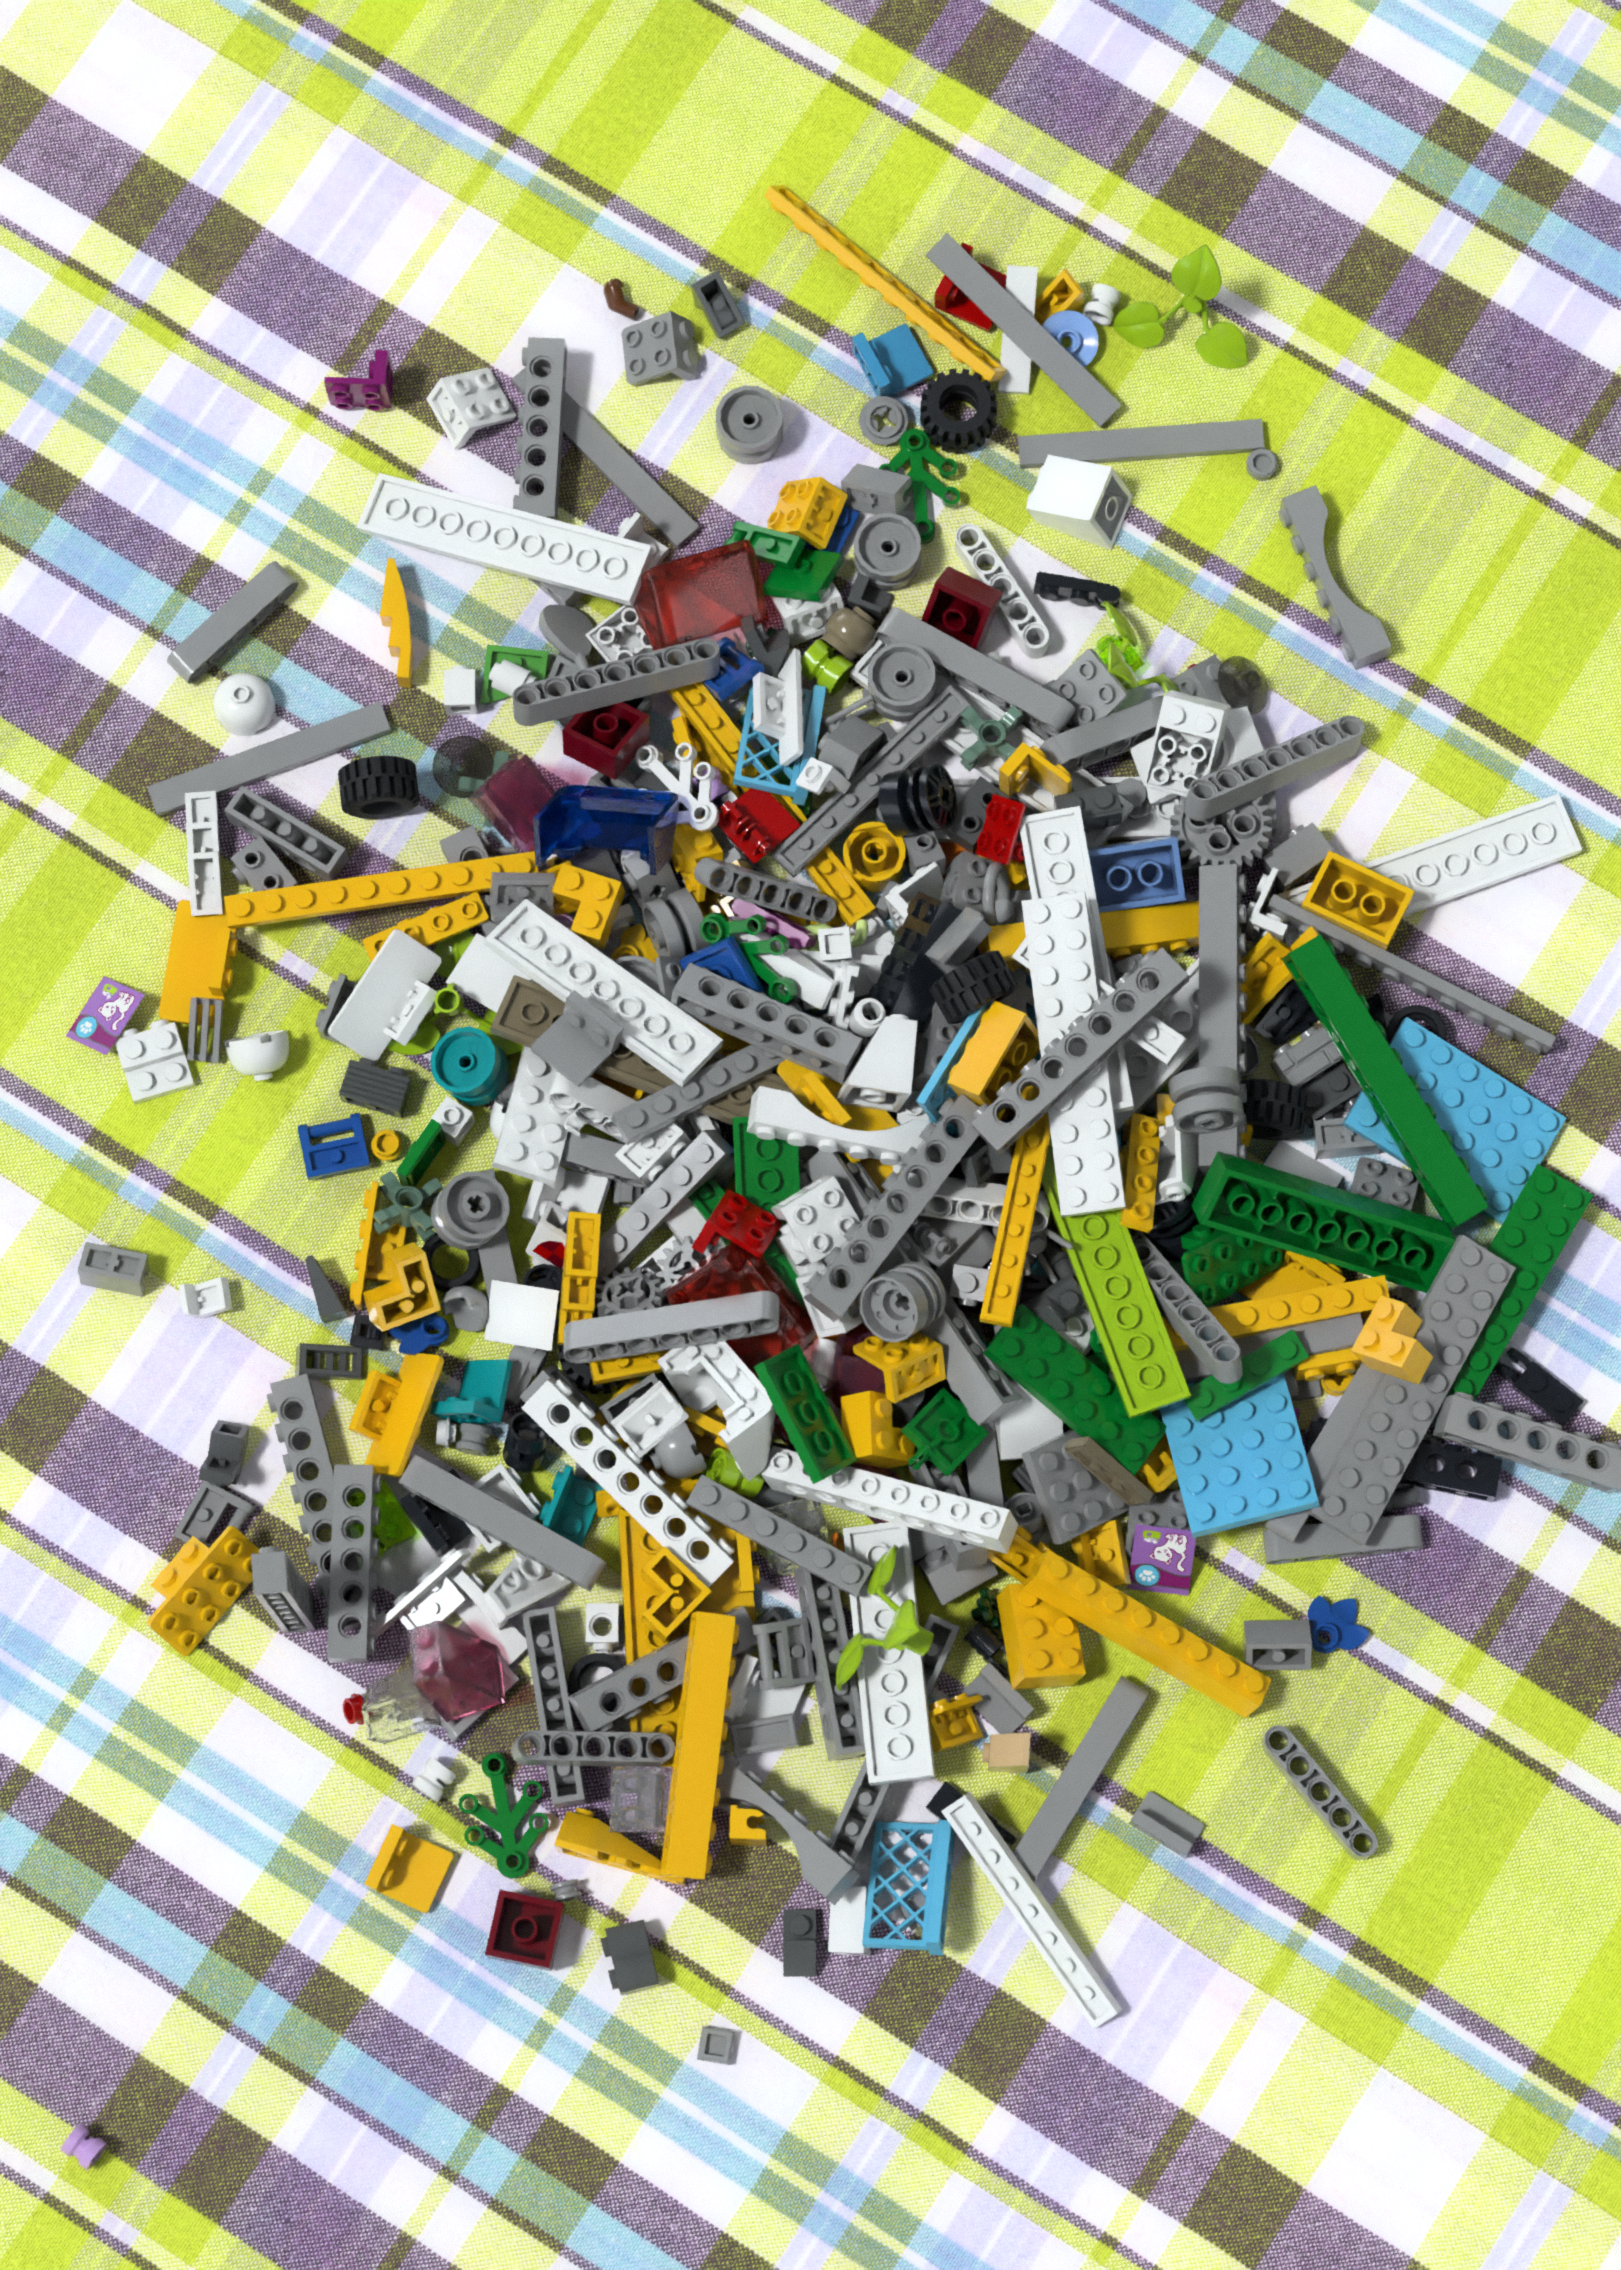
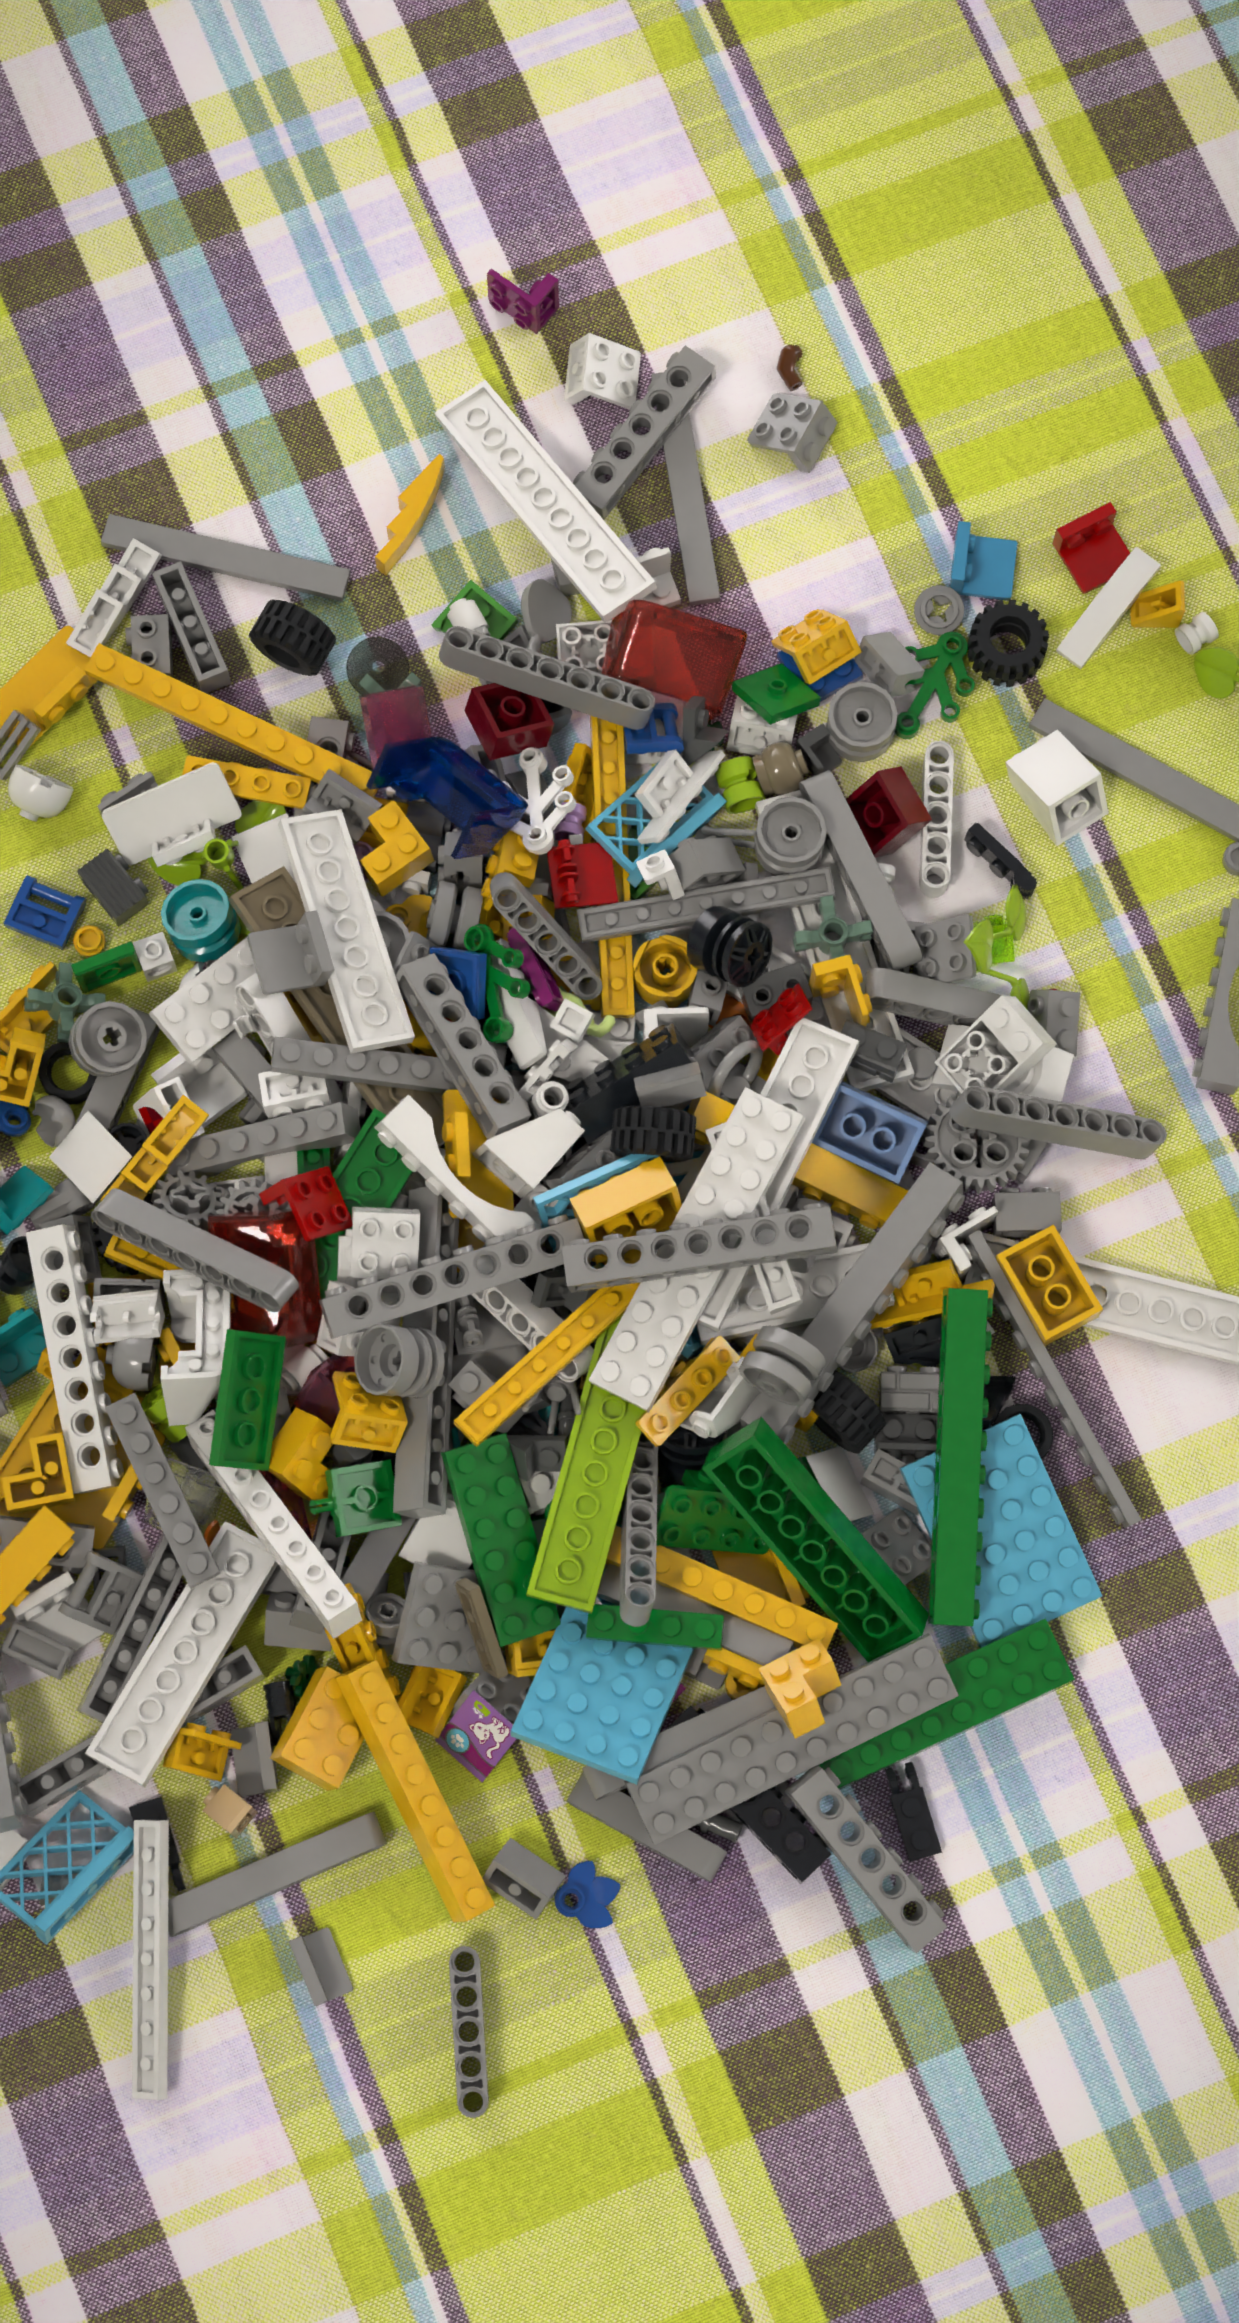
camera: 30 degrees right, 0 degrees up
(232, 622) = (276, 424): light grey beam -> none
(244, 704) = (237, 498): white cylinder -> none
(460, 691) = (421, 604): white brick -> none
(717, 304) = (867, 421): dark grey slope -> none
(749, 424) = (821, 539): light grey wheel -> none
(769, 544) = (764, 649): green plate -> none
(878, 278) = (1020, 487): yellow plate -> none
(902, 1633) = (197, 1642): lime plant -> none
(1023, 330) = (1110, 610): light grey tile -> none
(1080, 332) = (1156, 633): light blue dish -> none
(1243, 684) = (1086, 1035): clear smoke dish -> none

